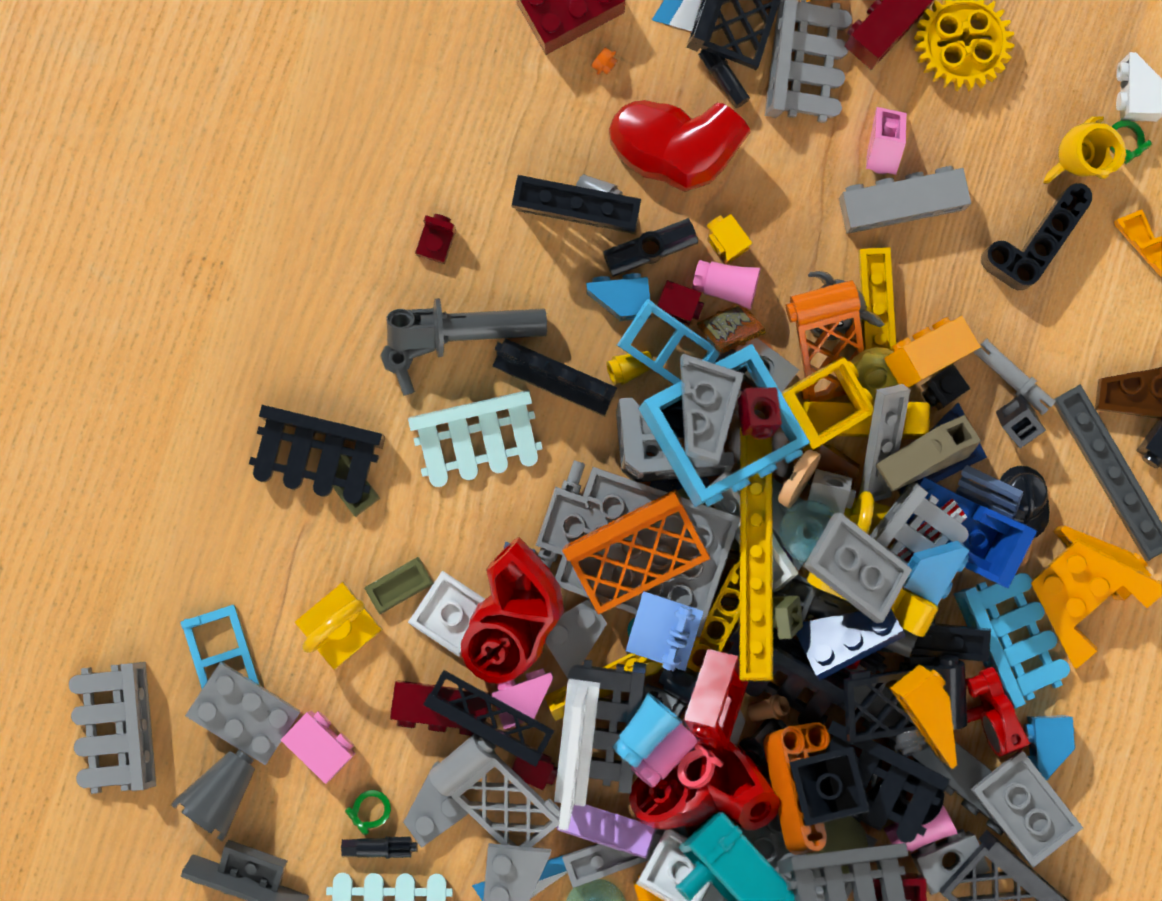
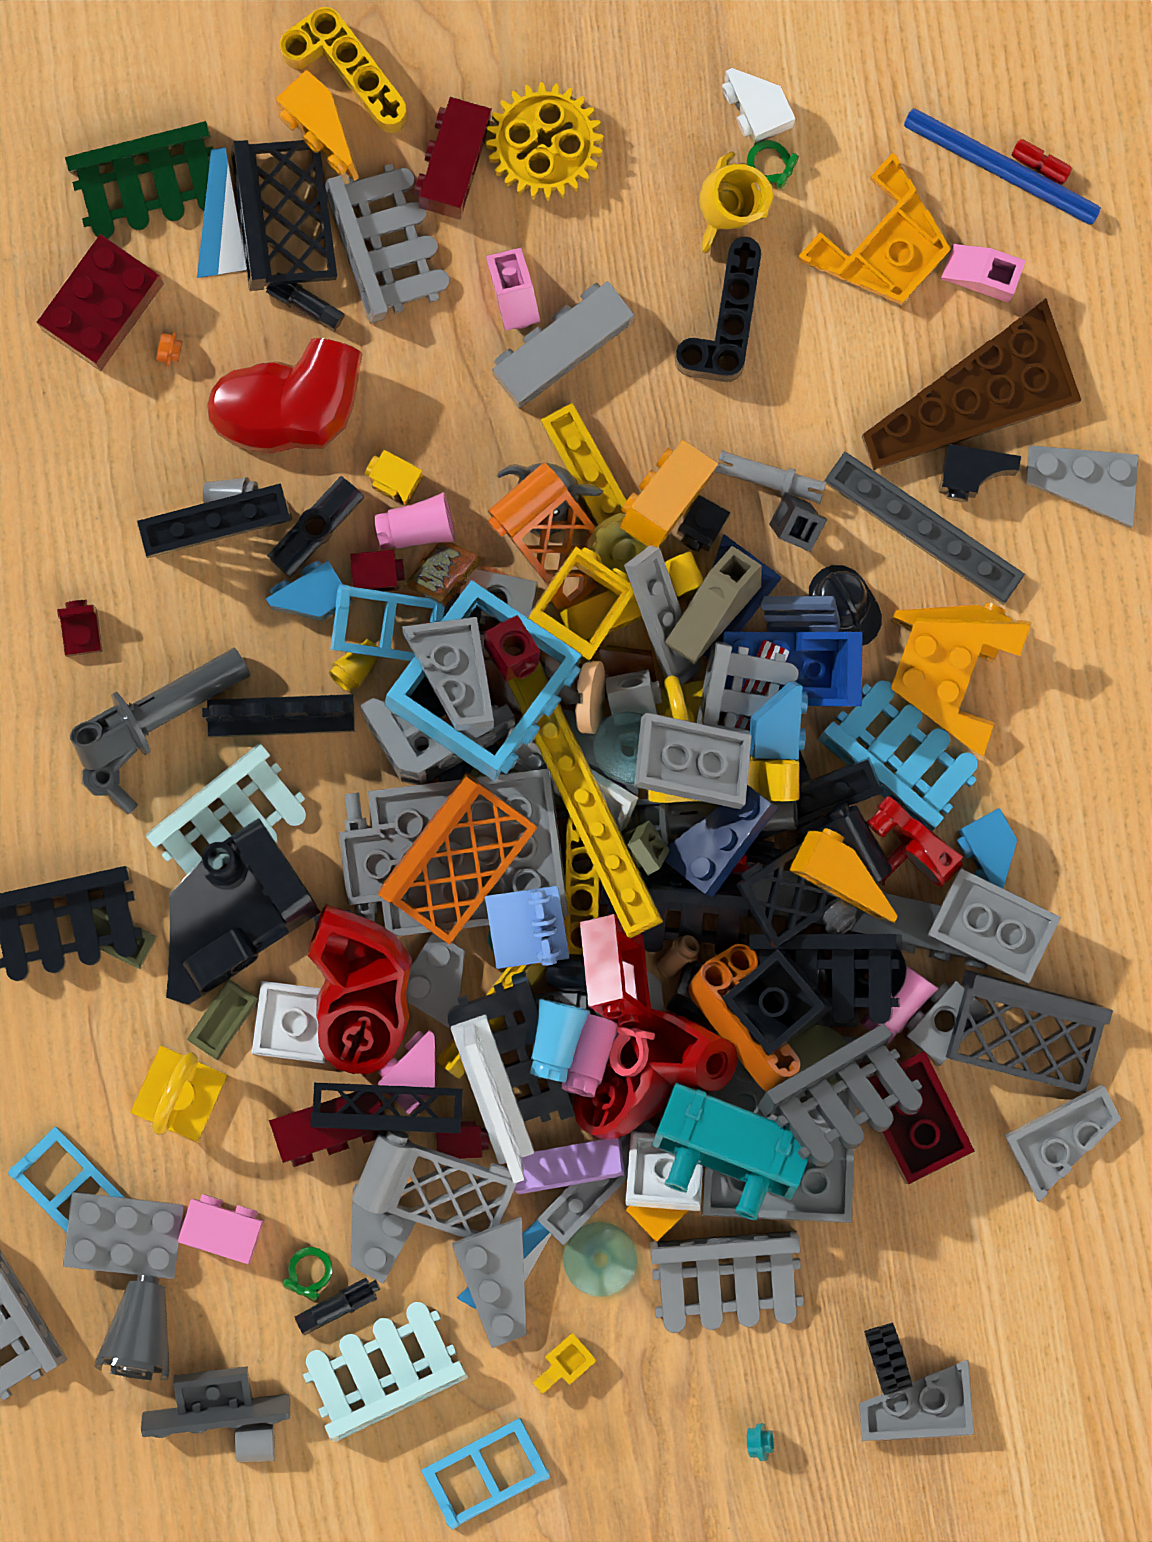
camera: 30 degrees left, 0 degrees up
(445, 508) = (232, 912): none -> black panel

